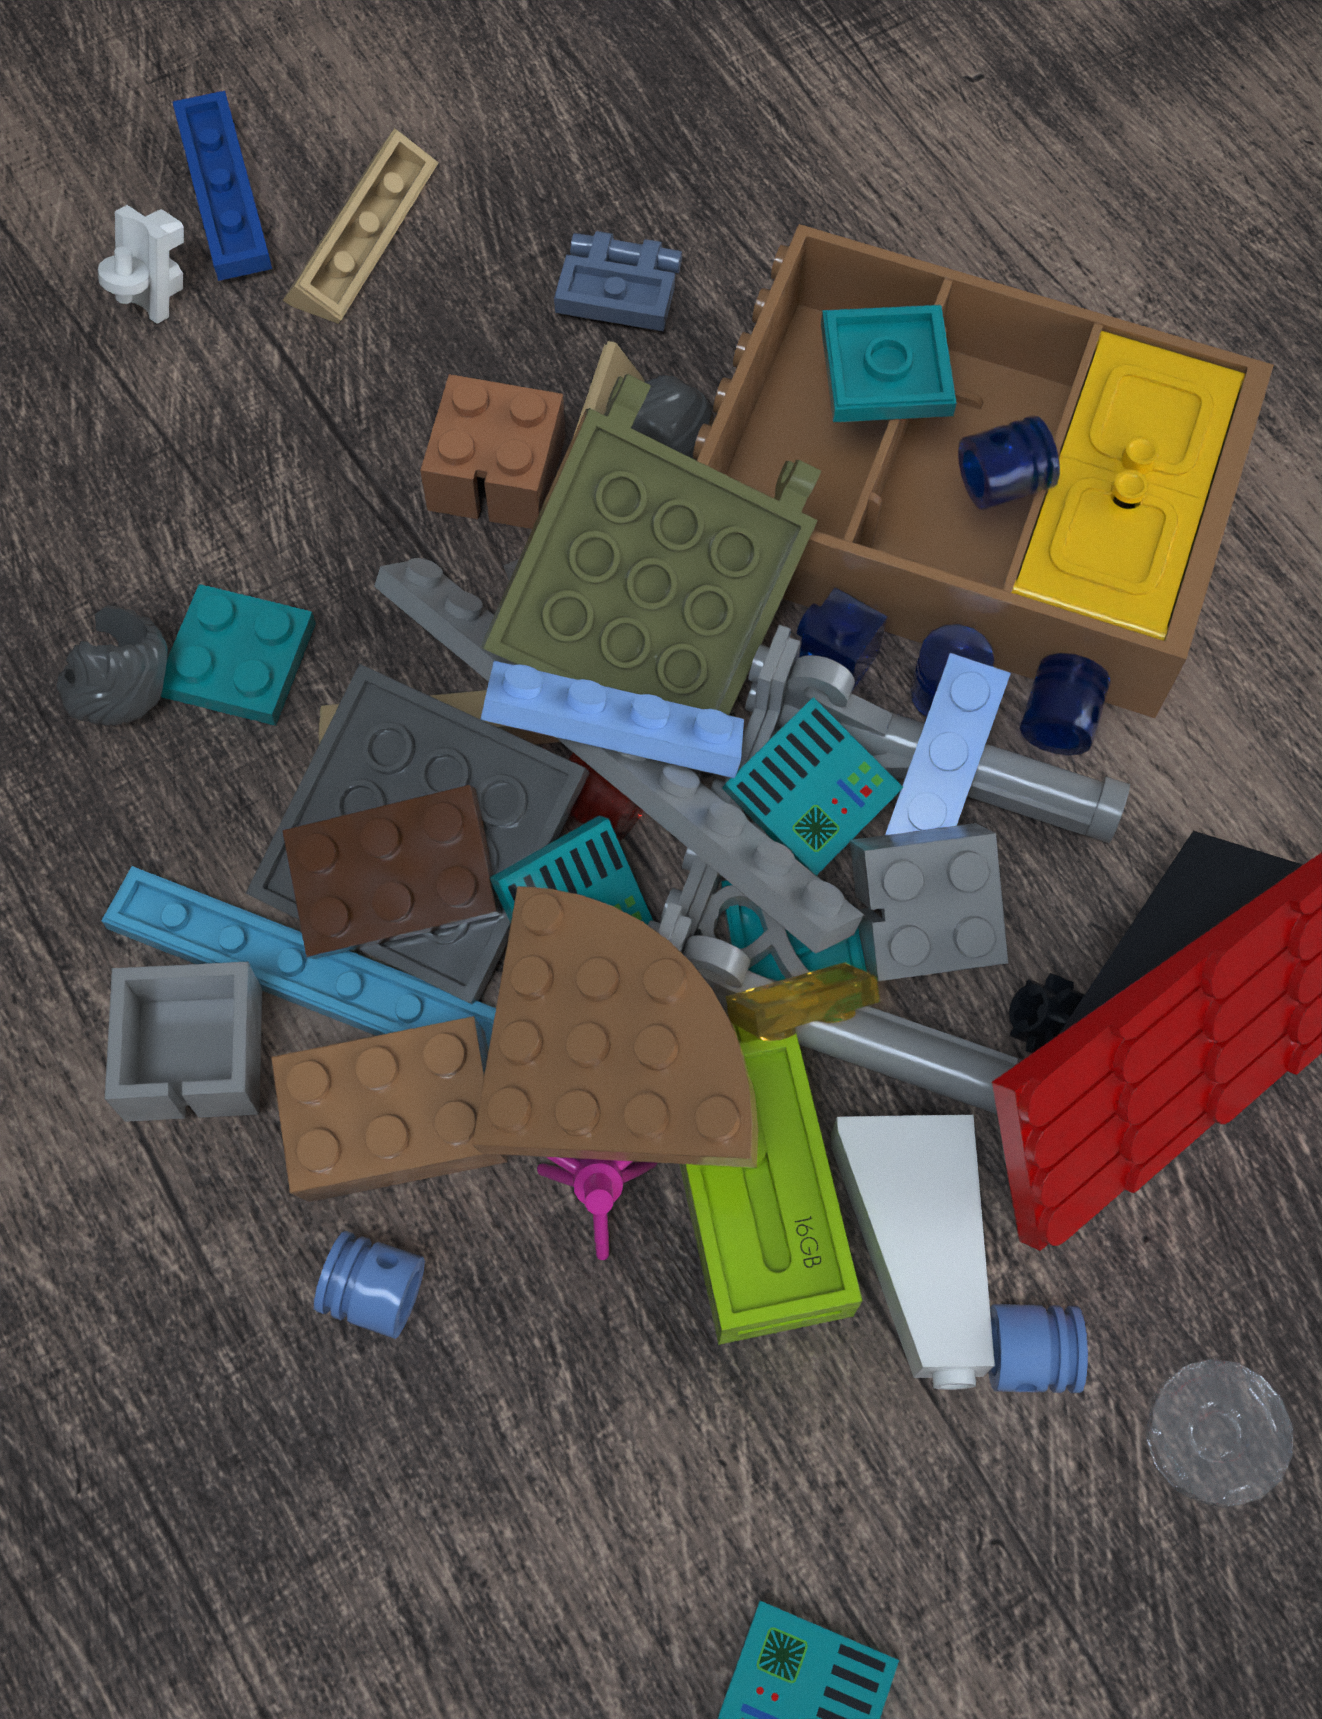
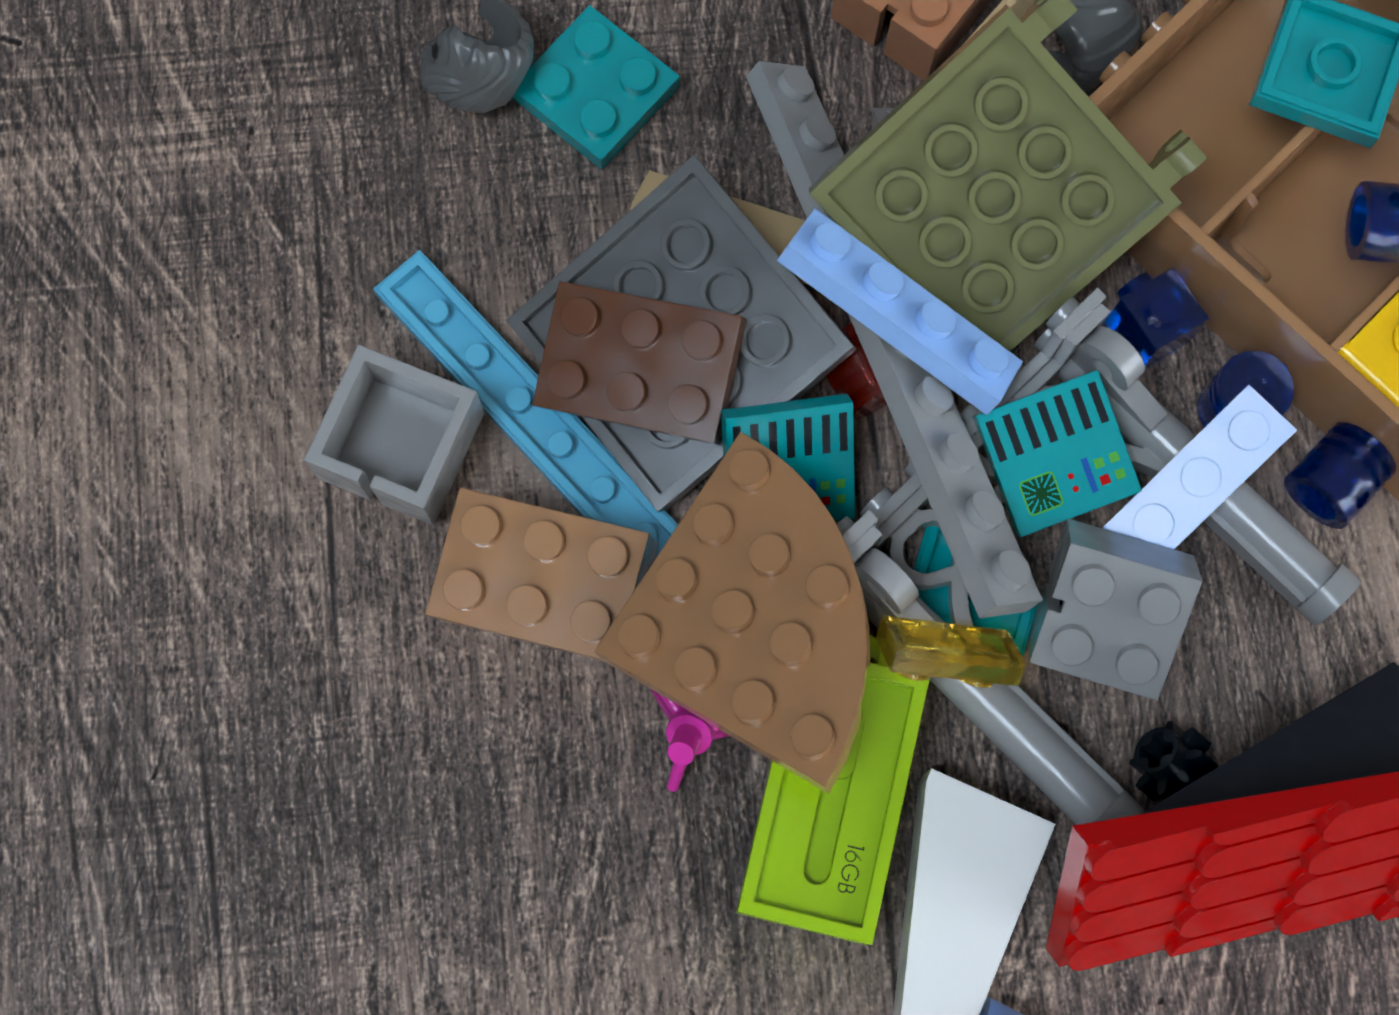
camera: 25 degrees right, 10 degrees up
(369, 1284) = (460, 721): medium blue piece -> none

